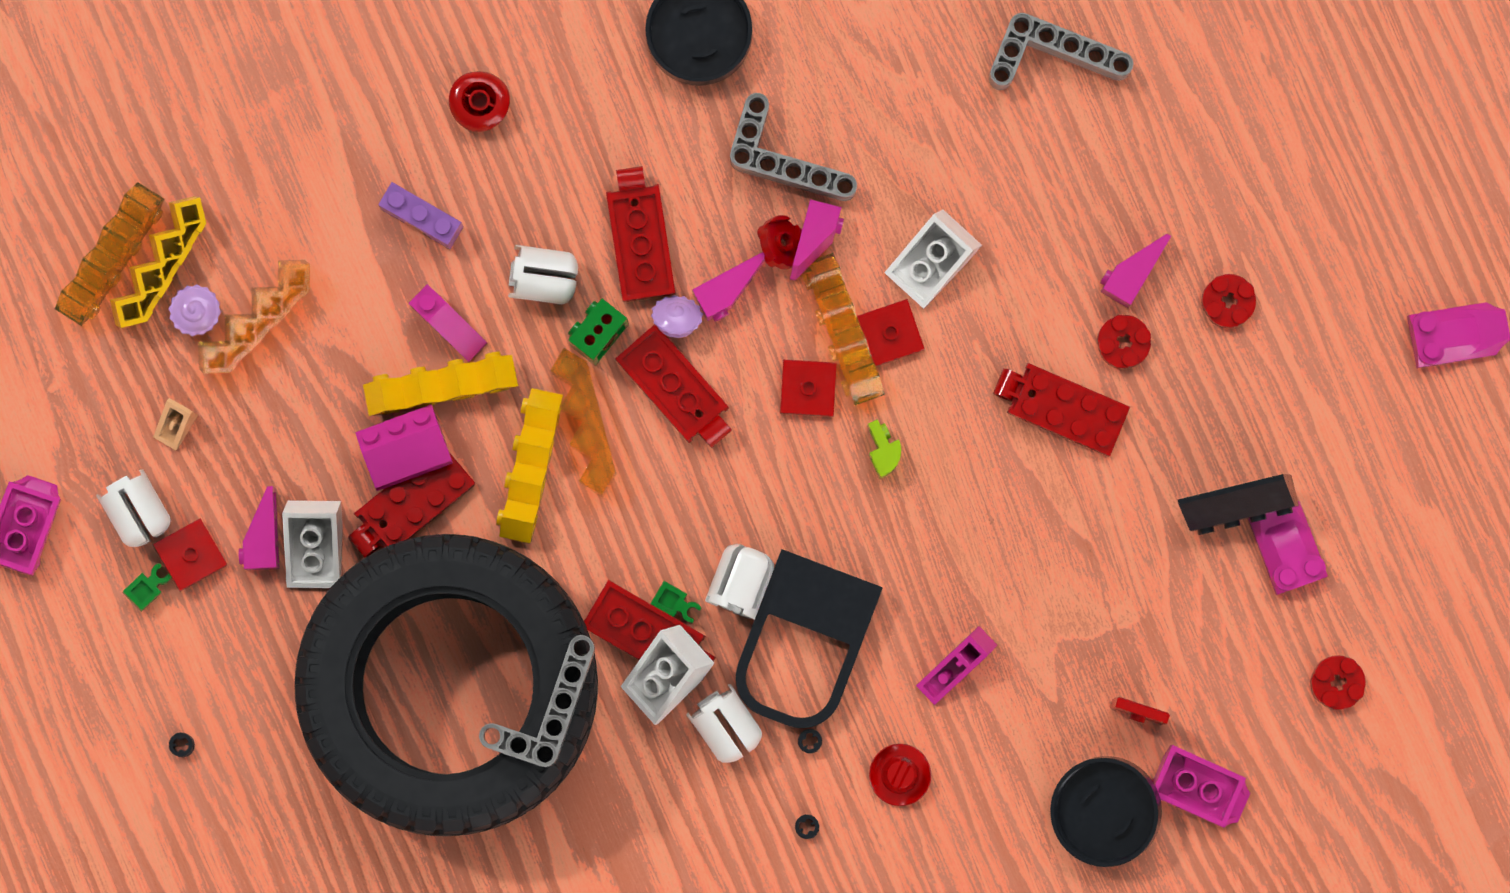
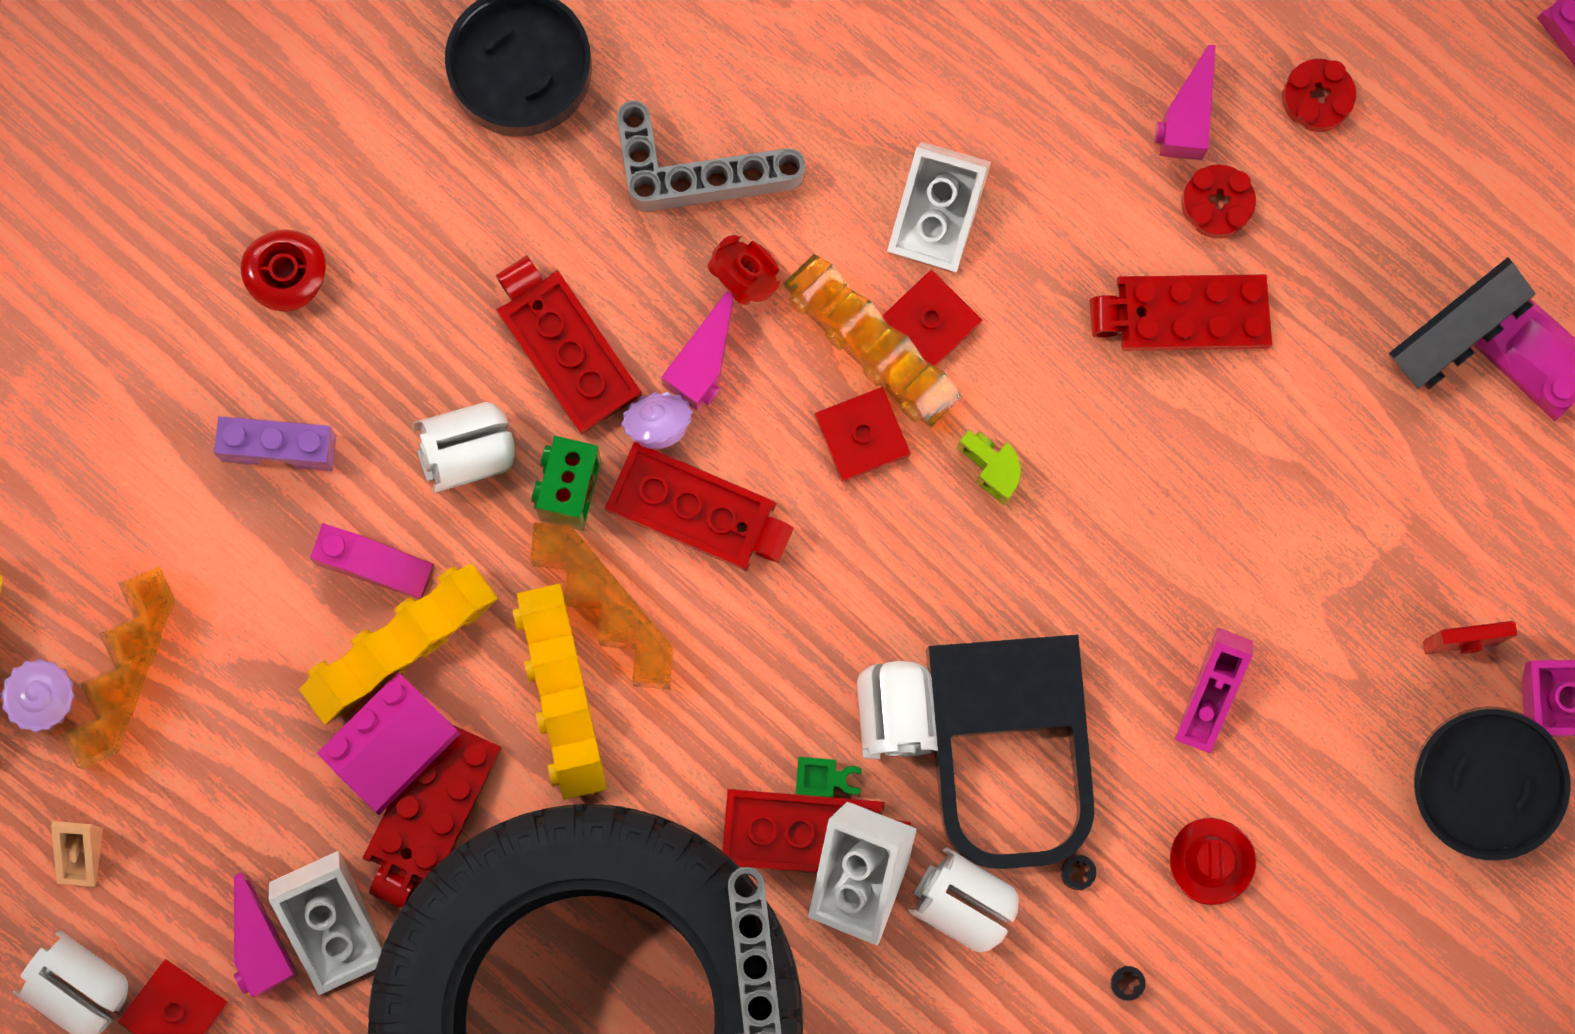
camera: 30 degrees left, 5 degrees down
(817, 234) = (783, 239): dark pink slope -> none

